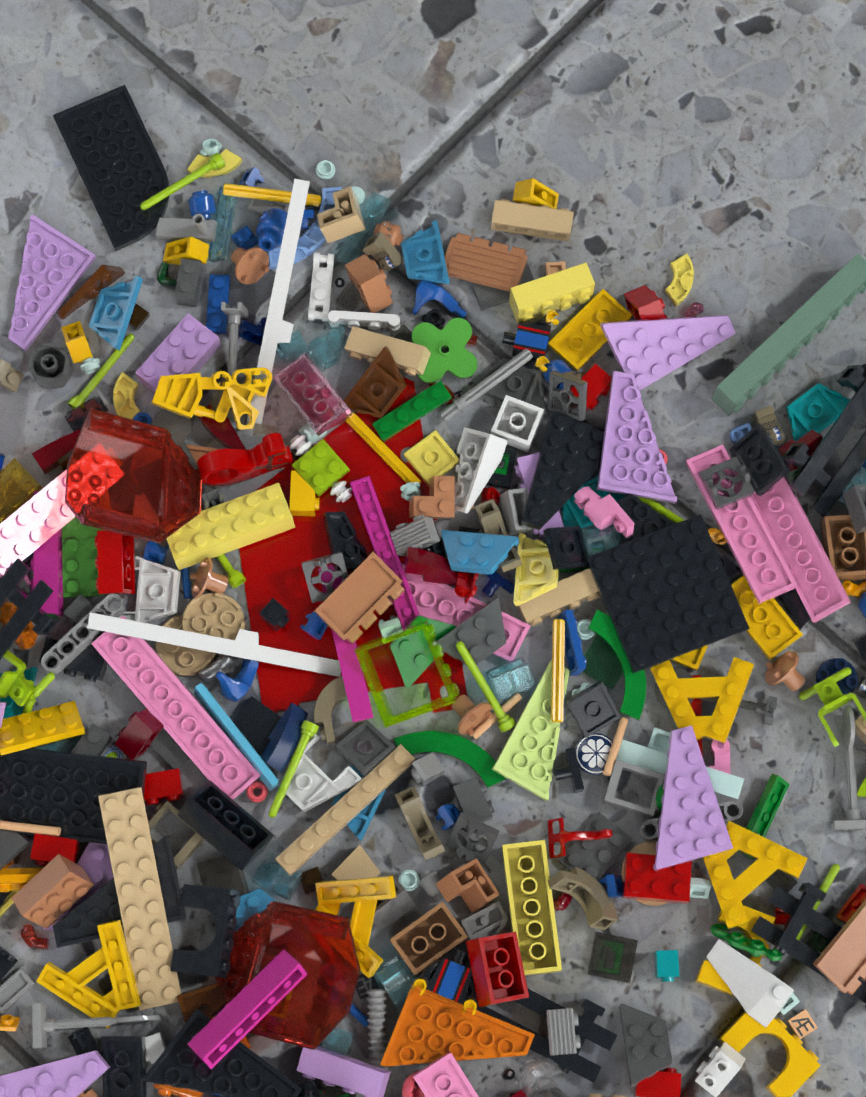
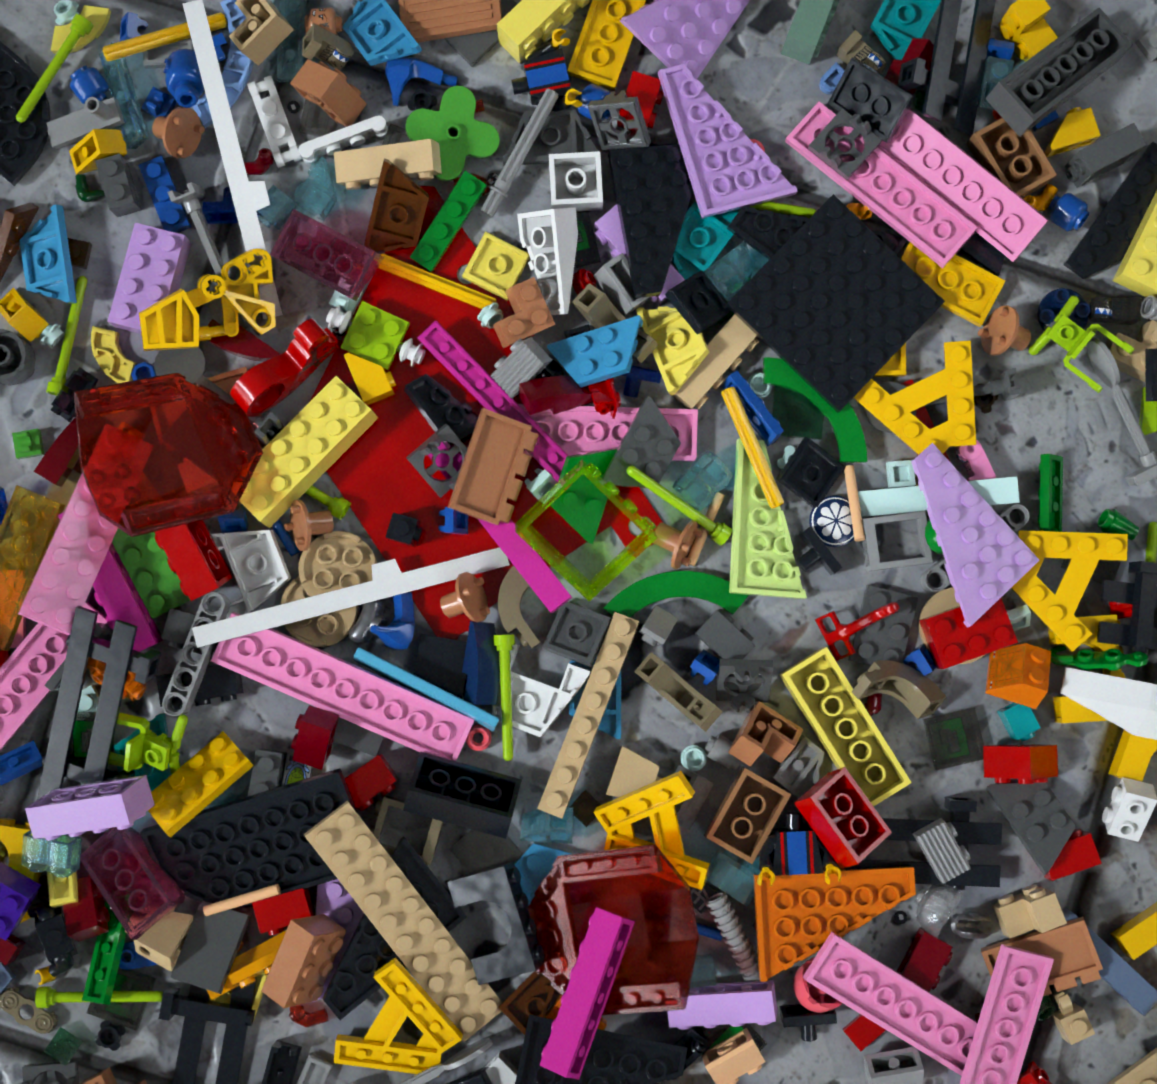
camera: 25 degrees left, 10 degrees up
(36, 434) = (28, 444): none -> bright green tile
(297, 312) = (261, 164): none -> dark red arm
(297, 685) = (467, 598): none -> nougat piece
(604, 511) = (722, 240): bright pink plate -> none
(653, 996) = (1020, 762): none -> red brick
(680, 928) = (1019, 674): none -> orange slope
(747, 720) = (985, 406): none -> dark brown plate
(807, 849) = (1115, 523): none -> green cone

